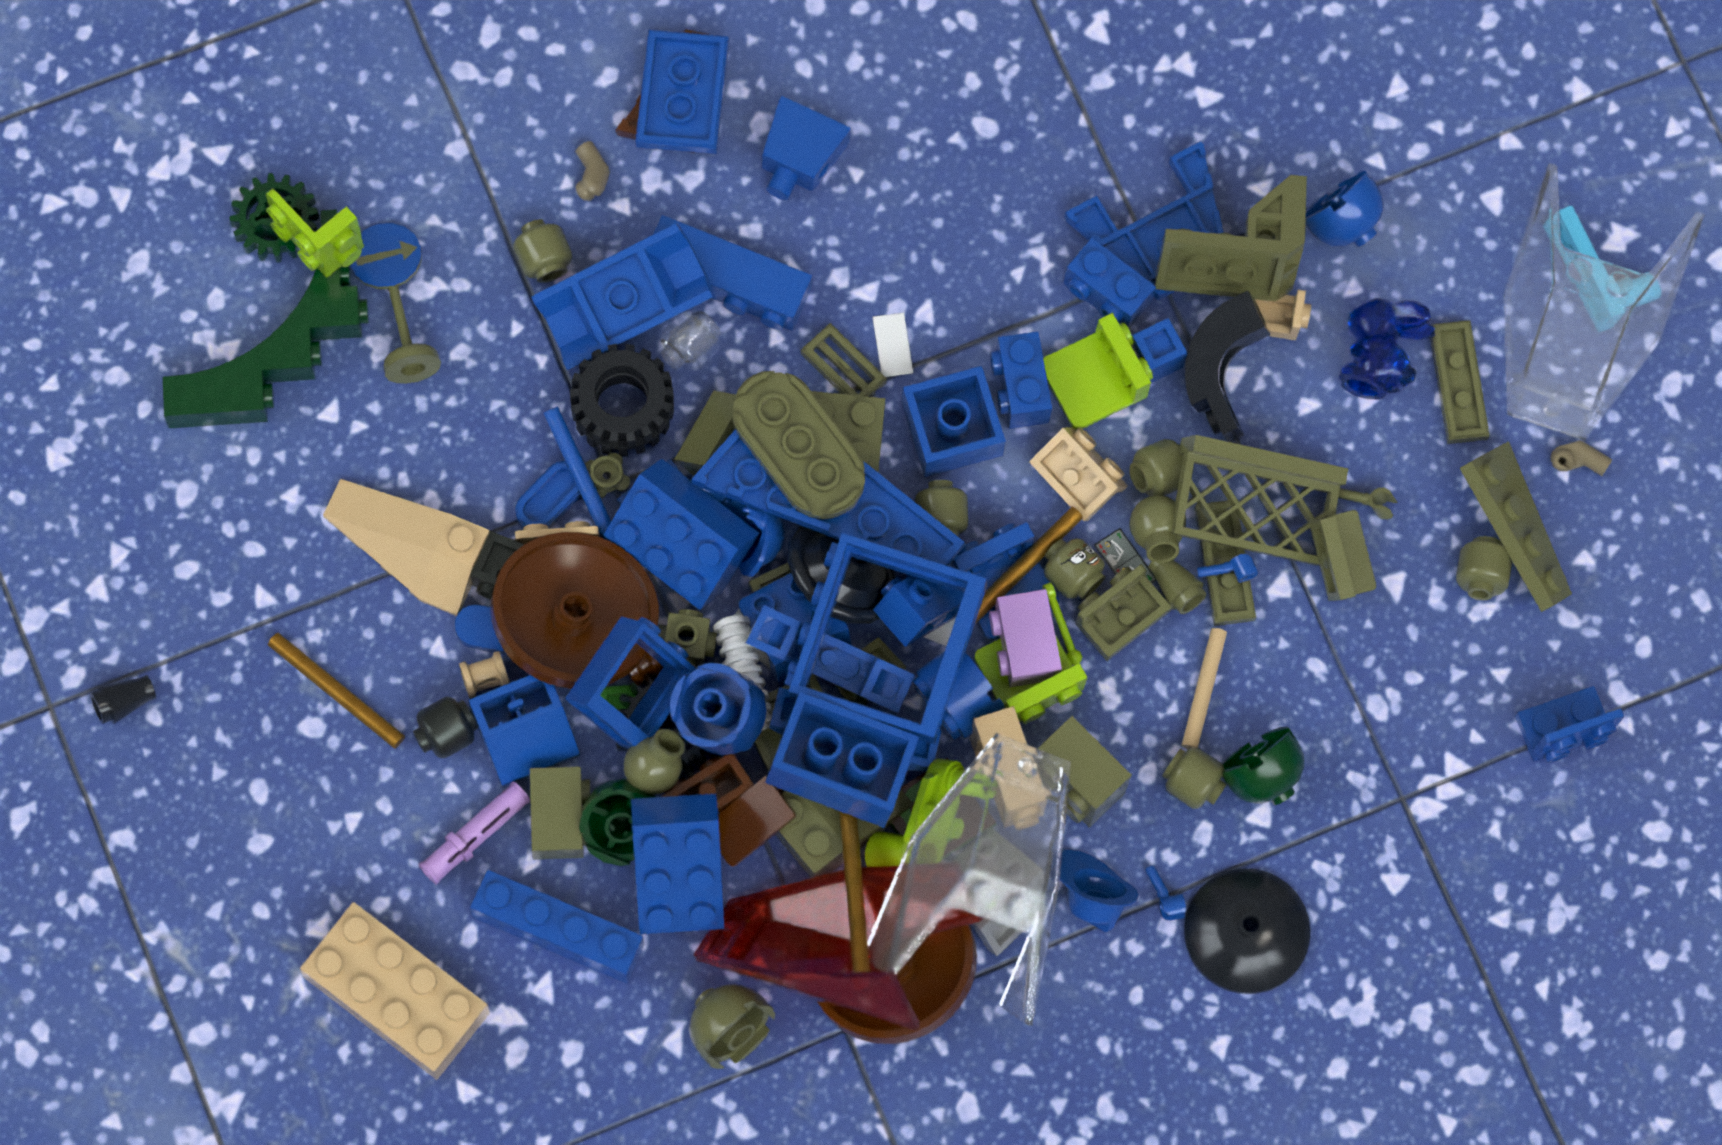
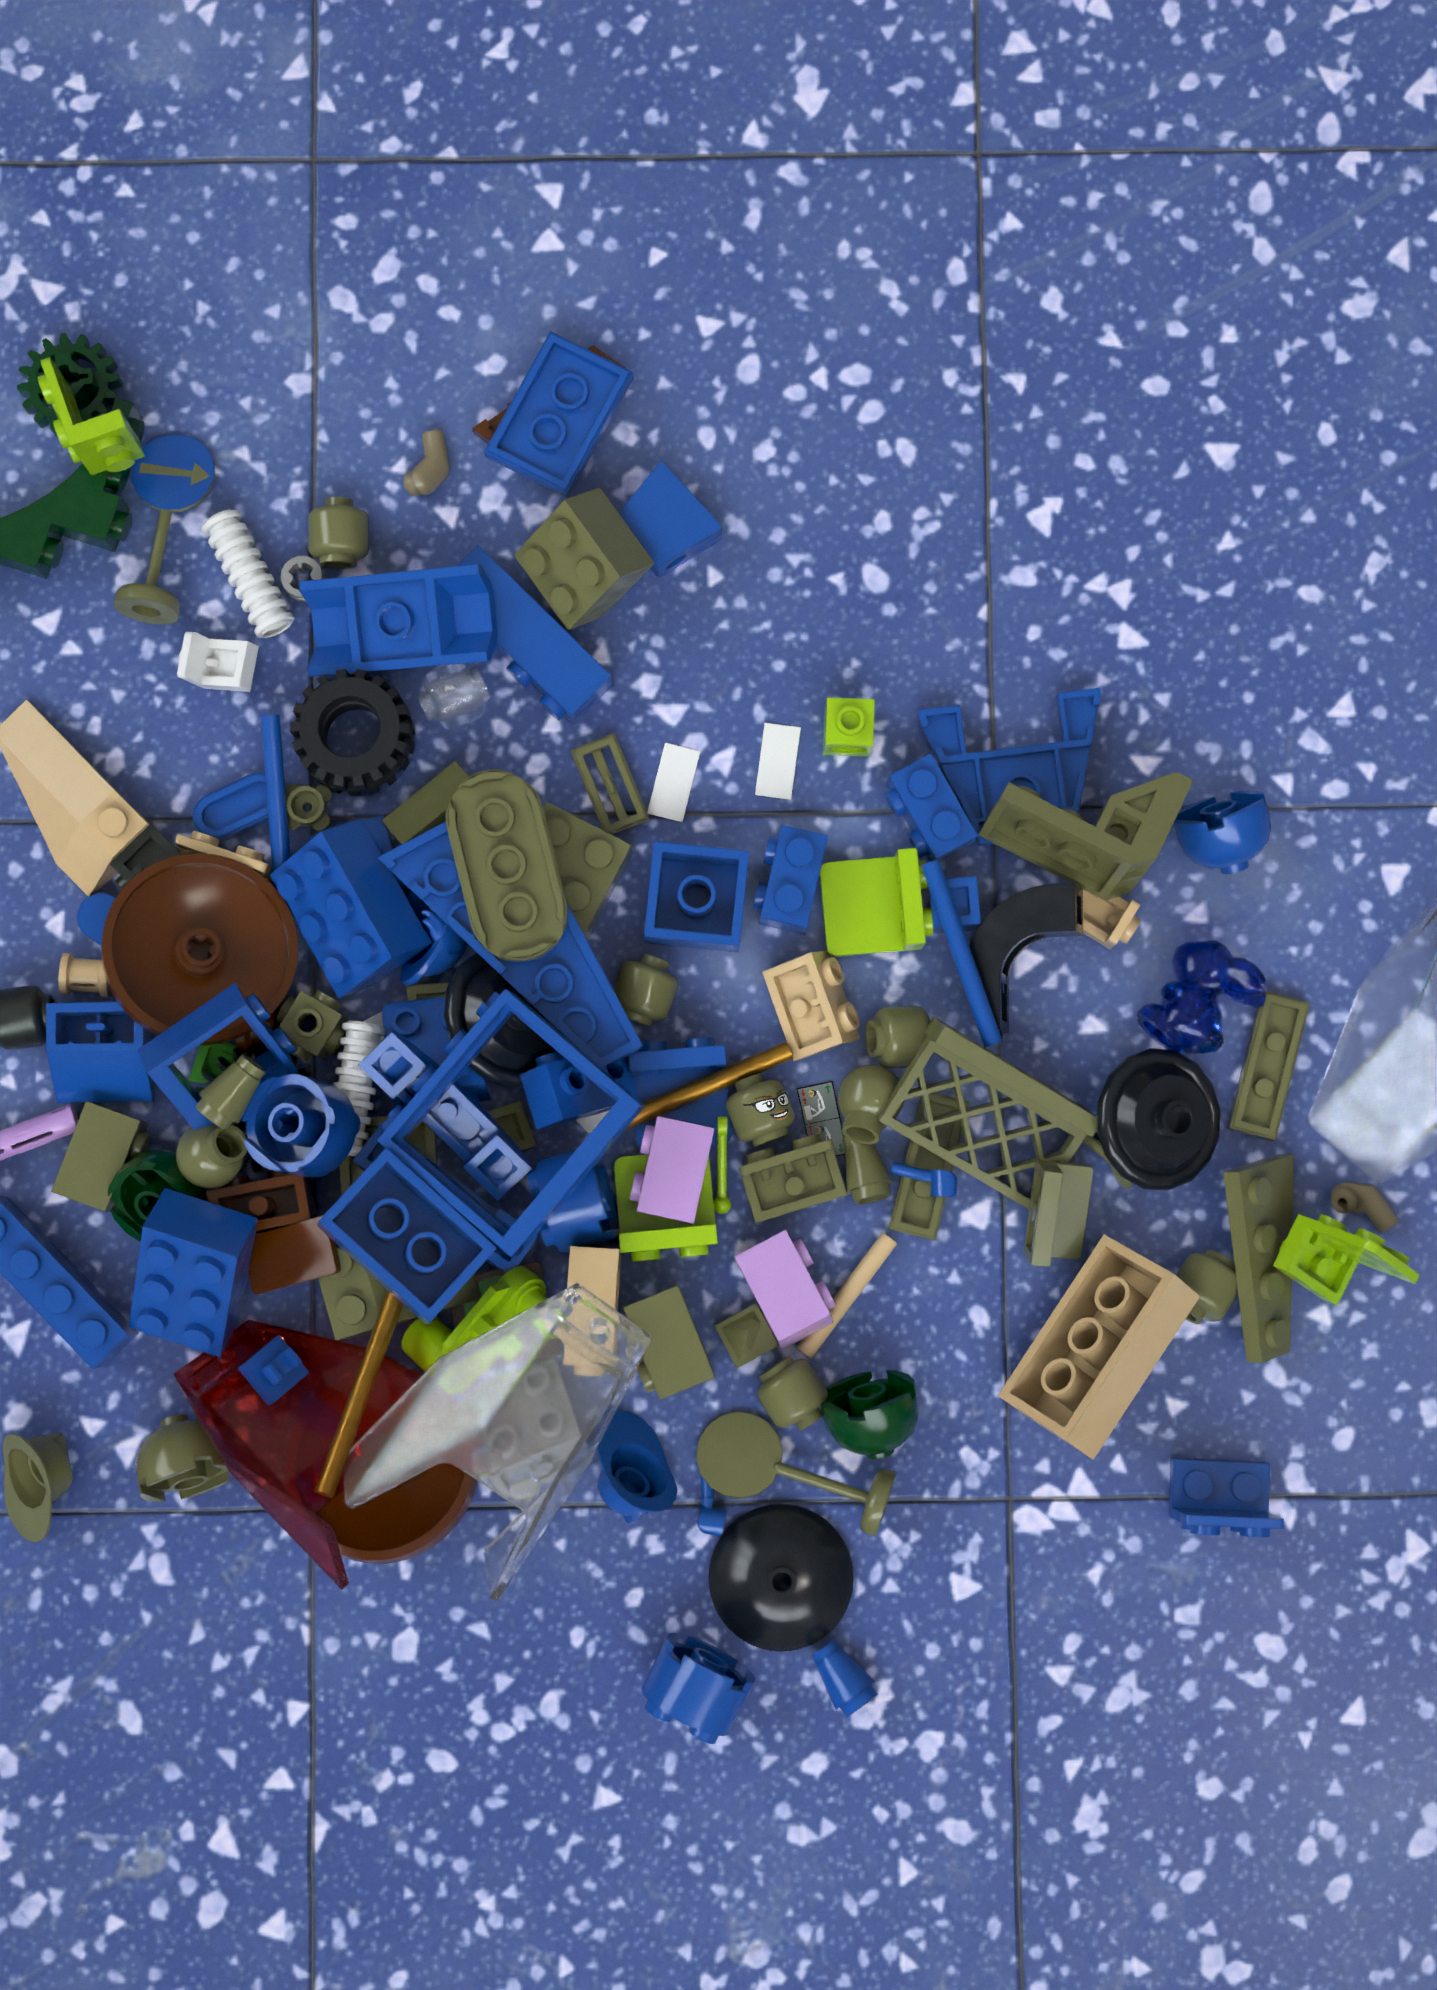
camera: 25 degrees right, 10 degrees up
(481, 310) = (247, 573): none -> white piece
(488, 388) = (217, 662): none -> white bracket
(515, 303) = (299, 563): none -> light grey bush
(610, 1092) = (34, 1478): none -> olive piece
(656, 699) = (230, 1092): none -> olive cone
(752, 193) = (583, 558): none -> olive brick
(773, 918) = (273, 1370): none -> blue tile
(969, 296) = (777, 761): none -> white sticker
(1016, 245) = (848, 727): none -> lime brick
(1138, 751) = (746, 1335): none -> olive tile
(1154, 698) = (785, 1288): none -> lavender brick
(1178, 846) = (743, 1456): none -> olive piece
(1182, 379) = (961, 953): none -> blue bar
(1218, 1032) = (696, 1687): none -> blue brick
(1332, 987) = (844, 1679): none -> blue cone
(1391, 452) = (1158, 1119): none -> black piece
(1420, 641) = (1099, 1346): none -> tan brick
(1567, 498) = (1325, 1256): none -> lime bracket

